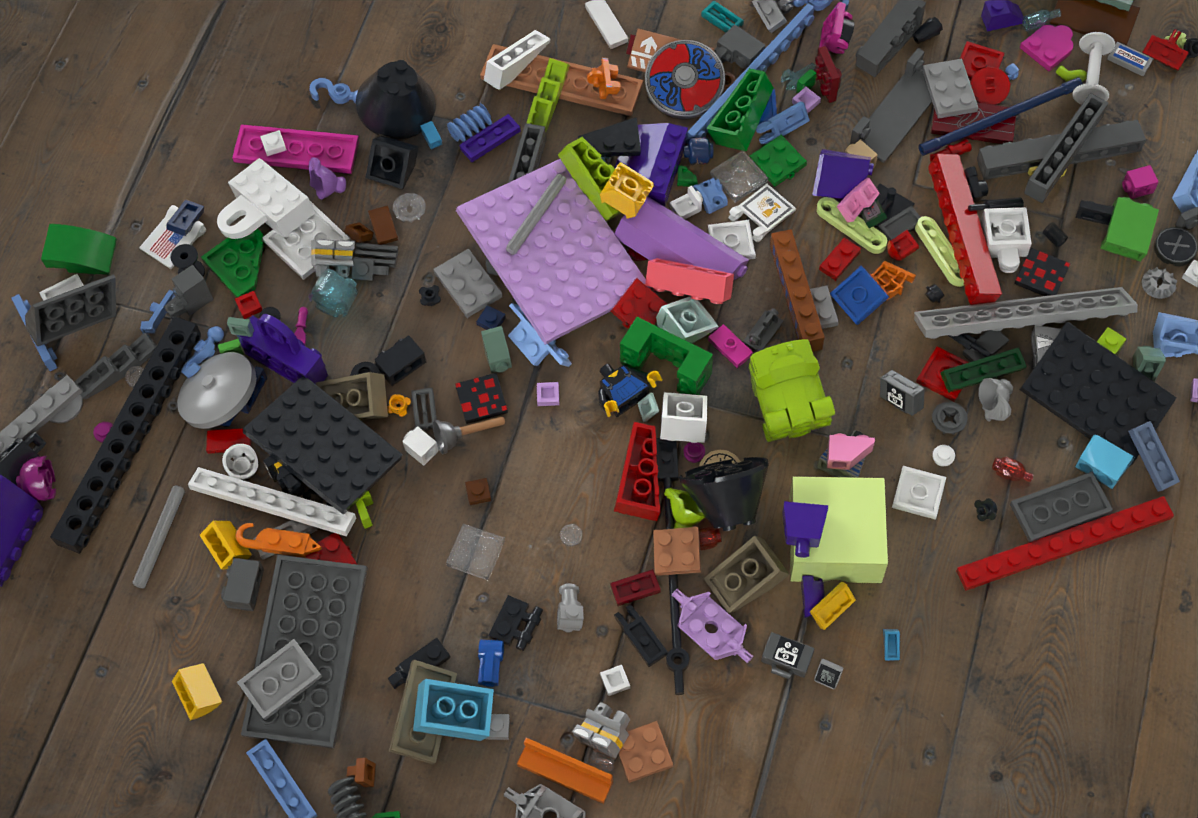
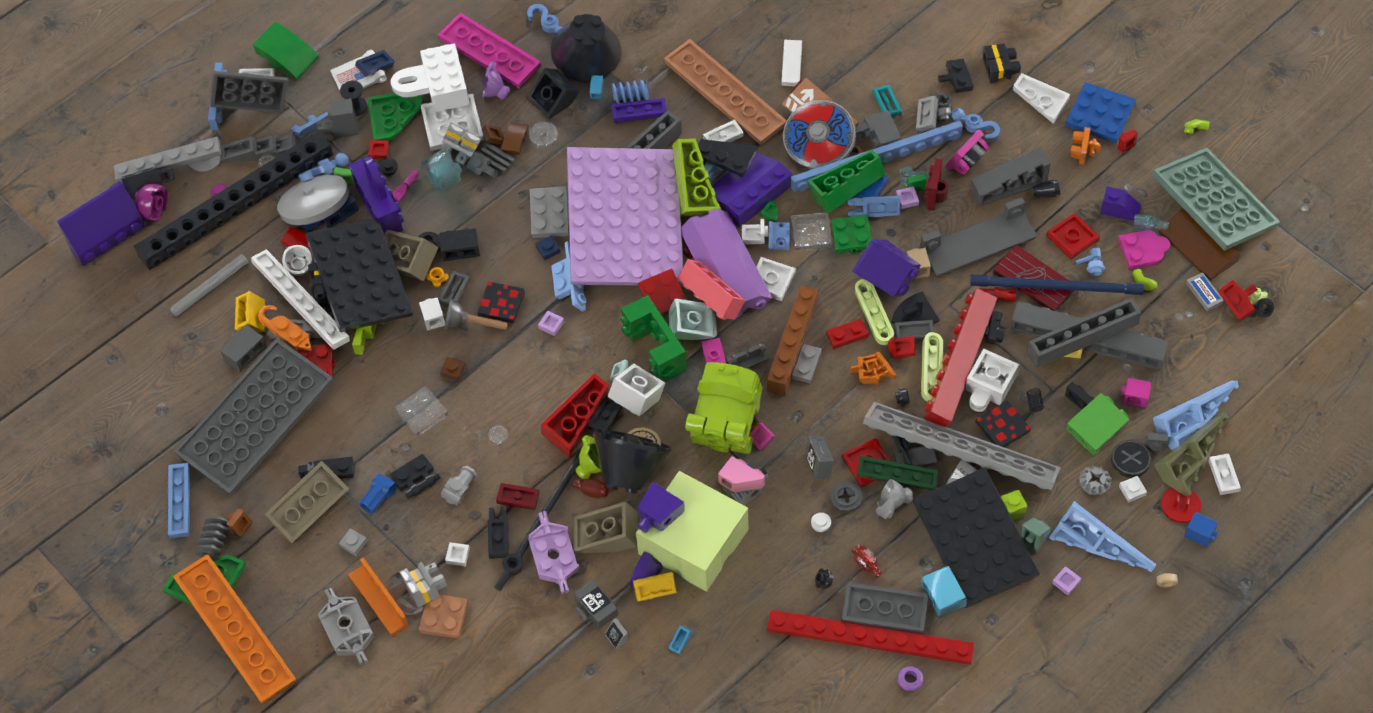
camera: 30 degrees right, 5 degrees down
(196, 691) = (164, 405): yellow brick -> none
(240, 326) = (352, 159): sand green tile -> none
(273, 143) = (473, 37): white plate -> none
(279, 679) = (221, 425): light grey plate -> none
(429, 300) = (514, 212): black plate -> none
(453, 710) = (325, 510): medium azure brick -> none
(496, 349) = (532, 270): sand green slope -> none
(512, 61) = (692, 58): white slope -> none
(536, 214) = (624, 181): light grey axle -> none
(548, 93) = (703, 98): lime slope -> none
(590, 120) = (726, 133): none -> white plate
(602, 76) = (748, 101): orange hips -> none
(624, 388) = (607, 347): torso -> none
(626, 190) = (706, 196): yellow slope -> none
(677, 551) = (564, 485): nougat plate -> none
(694, 452) = (631, 421): magenta plate -> none
(698, 150) = (792, 196): dark blue head -> none
(765, 208) = (814, 267): white flag -> none
(837, 398) = (761, 436): none -> dark pink plate
(859, 295) = (840, 367): blue plate -> none
(860, 197) = (887, 293): bright pink slope -> none
(873, 214) = (895, 307): tile -> none
(919, 492) = (782, 540): white tile -> none
(950, 88) = (1030, 243): light grey plate -> none
(990, 85) = (1067, 257): red piece -> none
(998, 203) = (1003, 352): black axle -> none
(1022, 83) = (1095, 268): none -> light blue plate
(1095, 45) = (1178, 265): white hose -> none
(1125, 570) = (910, 671): none -> medium lavender piece
(1154, 456) = (985, 607): sand blue plate -> none

